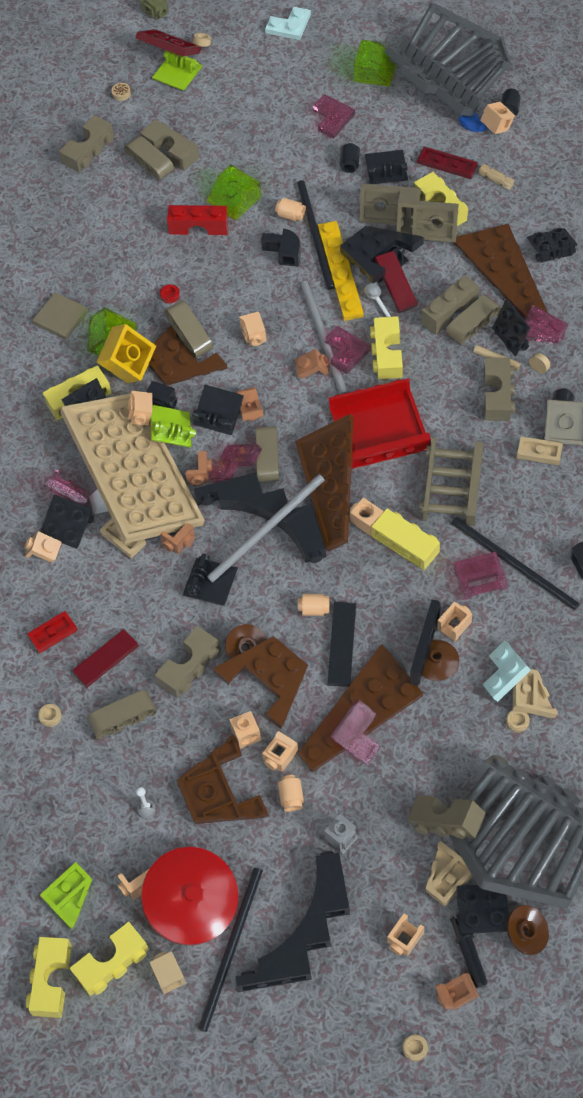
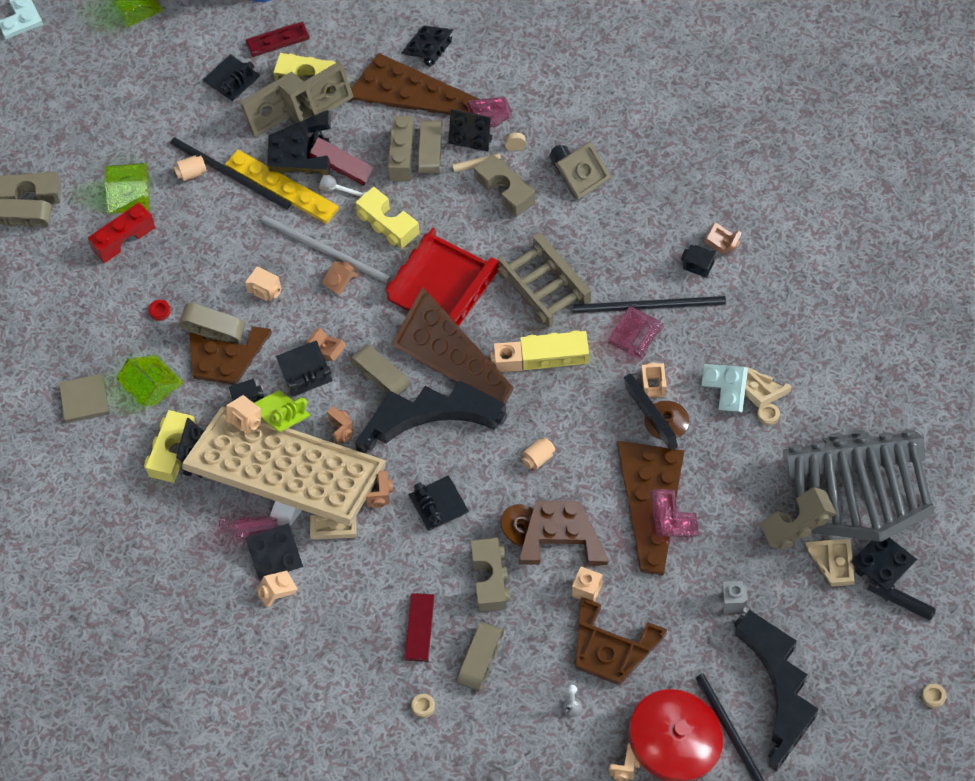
camera: 45 degrees left, 0 degrees up
(52, 632) = (357, 643): red plate -> none
(126, 353) = (185, 381): yellow brick -> none
(232, 458) = (356, 396): clear pink plate -> none
(264, 529) = (445, 424): light grey piece -> none
(275, 762) = (630, 589): light nougat window -> none
(286, 245) = (220, 197): black brick -> none
(290, 793) = (667, 601): light nougat brick -> none
(335, 115) = (142, 62): clear pink plate -> none
(342, 644) = (588, 466): black tile -> none
(349, 157) = (194, 91): black brick -> none
(350, 349) = (356, 239): clear pink plate -> none
(404, 926) = (851, 638): light nougat window -> none
(456, 992) = (924, 632): nougat bracket -> none
(496, 176) = (329, 22): tan axle -> none
(534, 926) = (926, 549): reddish brown dish -> none
(539, 450) = (582, 207): tan plate -> none

